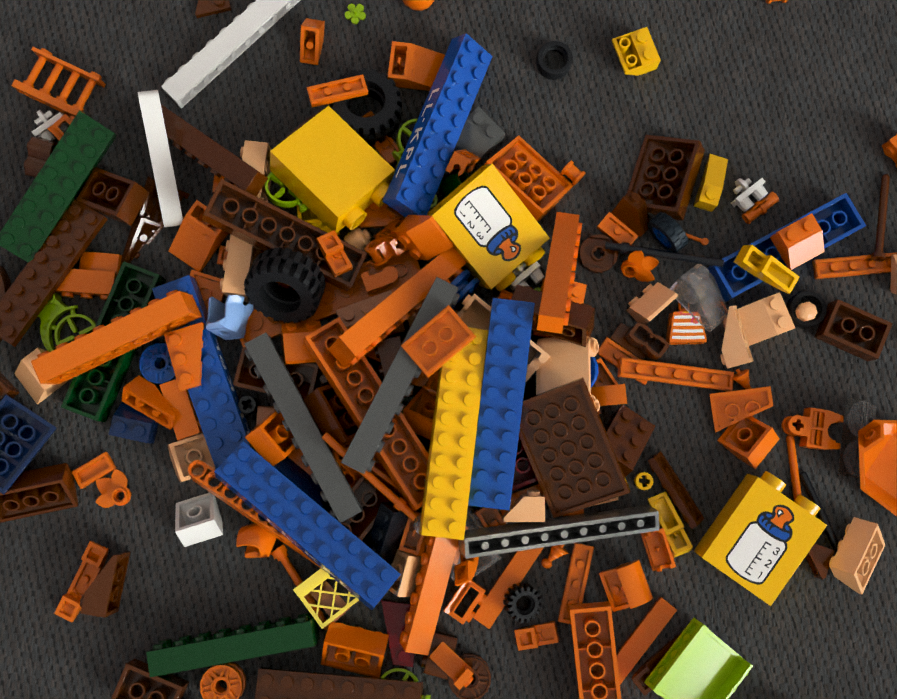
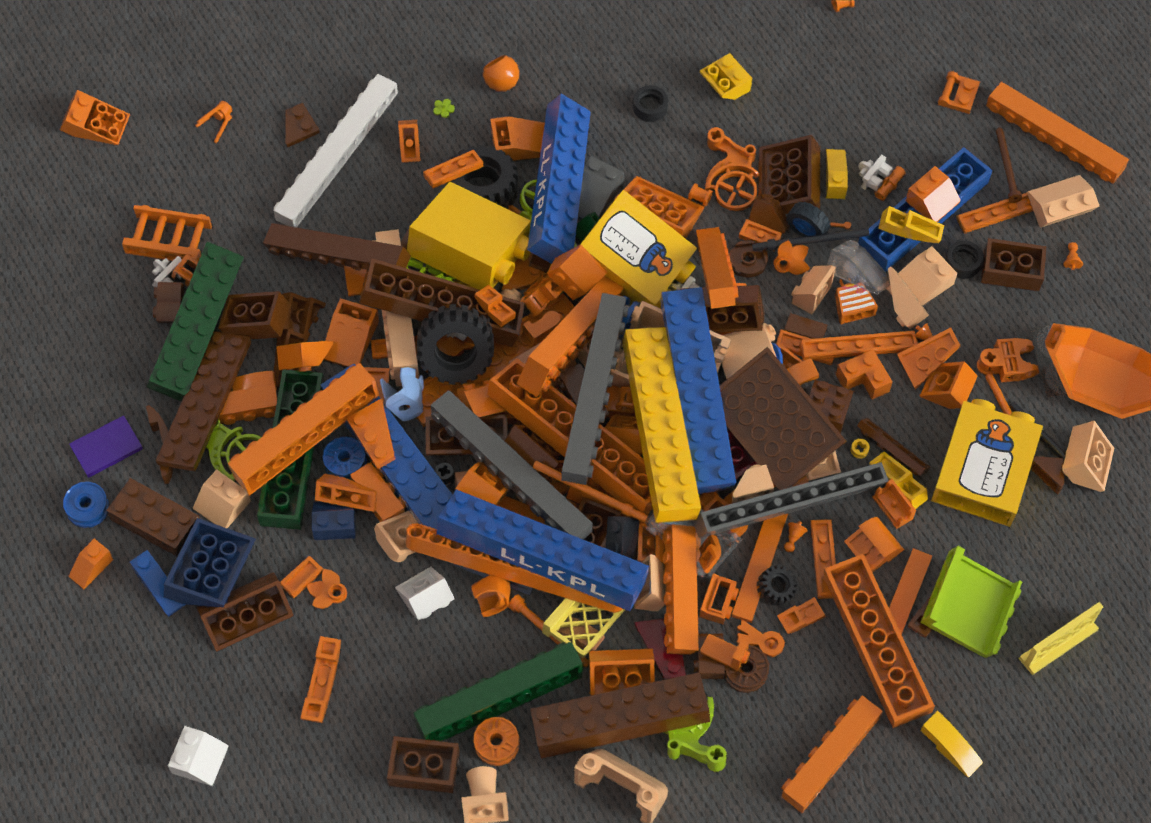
camera: 15 degrees left, 20 degrees down
(106, 590) = (348, 683): reddish brown slope -> none
(148, 249) = (302, 355): none -> orange slope
(160, 158) = (296, 269): white beam -> none
(438, 341) = (622, 343): orange tile -> none
(460, 161) = (590, 203): orange hinge -> none
(499, 654) = (770, 642): none -> orange piece
(620, 144) = (737, 159): none -> orange piece
(650, 344) = (819, 318): reddish brown brick -> none
(676, 404) = (865, 370): none -> orange brick
(806, 311) = (962, 257): light nougat tile -> none
(865, 127) = (965, 93): none -> orange plate

